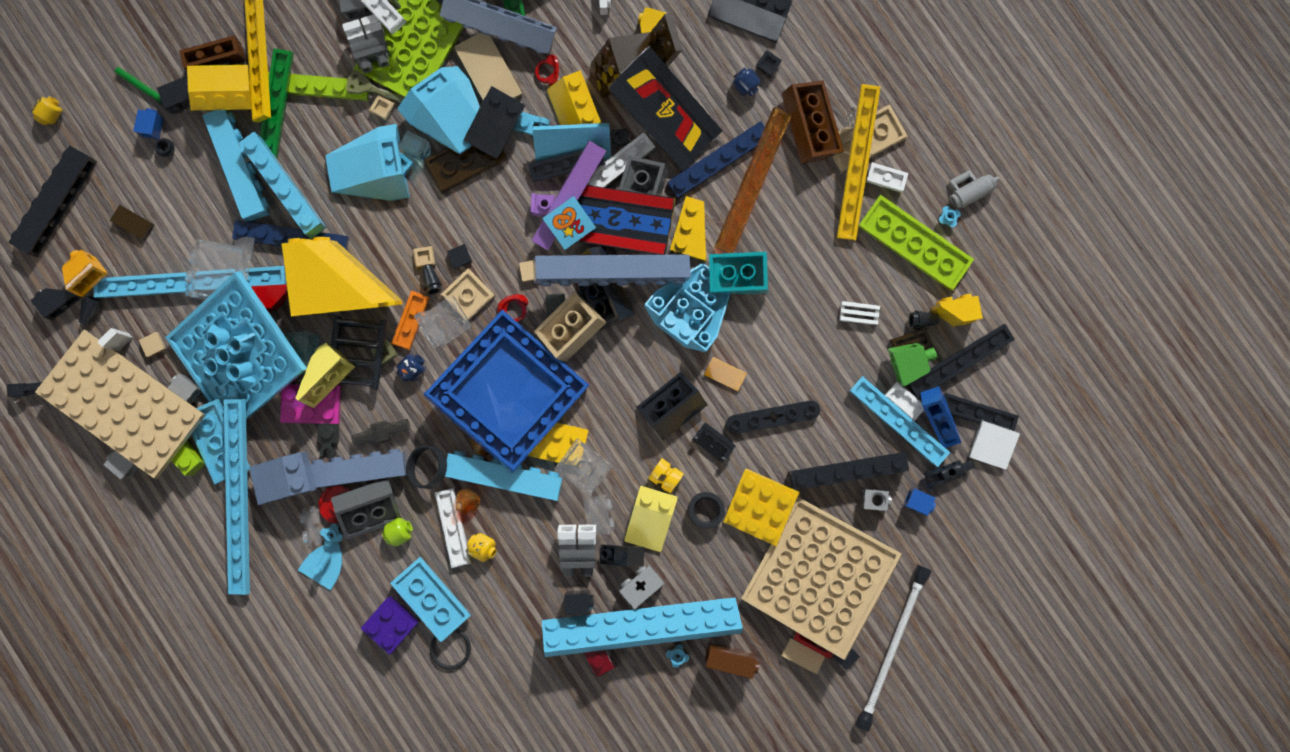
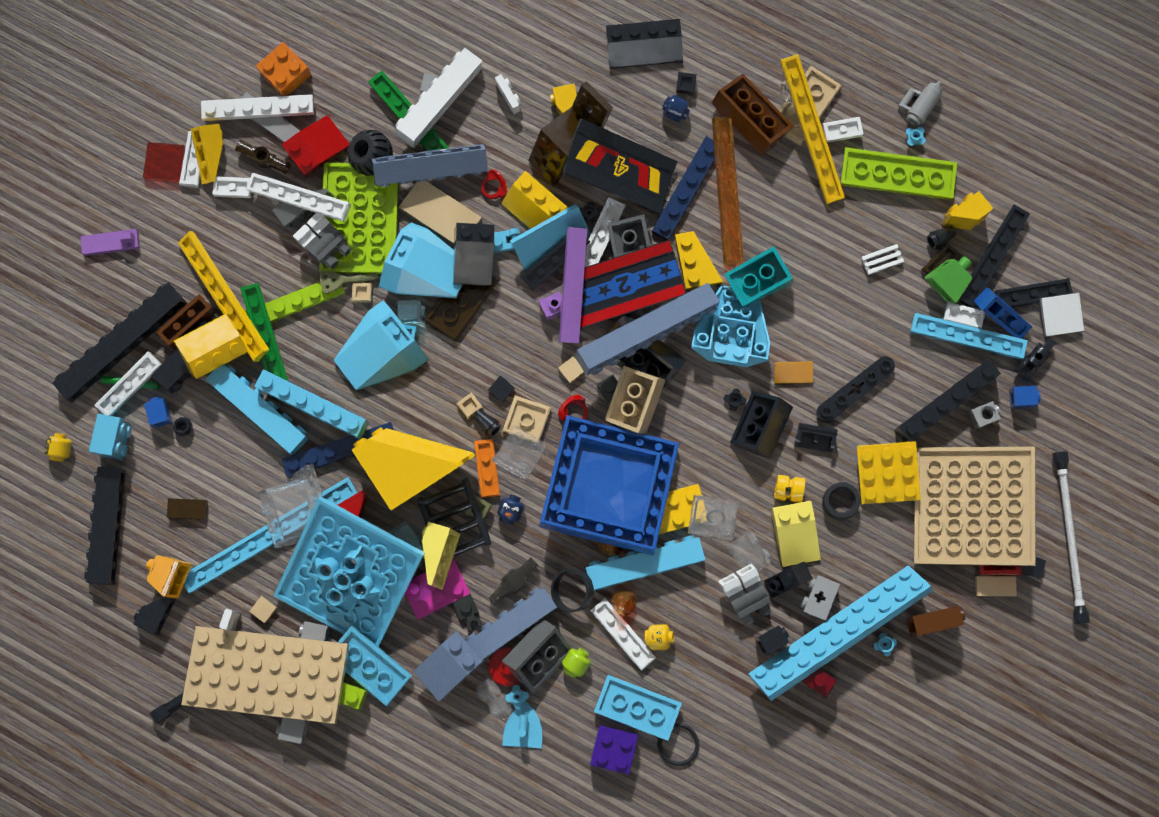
camera: 20 degrees left, 5 degrees down
(89, 309) = (189, 607): black cone -> none
(93, 124) = (110, 437): none -> medium azure brick
(134, 86) = (128, 385): none -> white tile
(145, 44) = (119, 342): none -> black brick
(236, 496) = (415, 705): medium azure plate -> none
(569, 222) = (586, 308): medium azure tile -> none
(661, 366) = (735, 404): none -> black plate

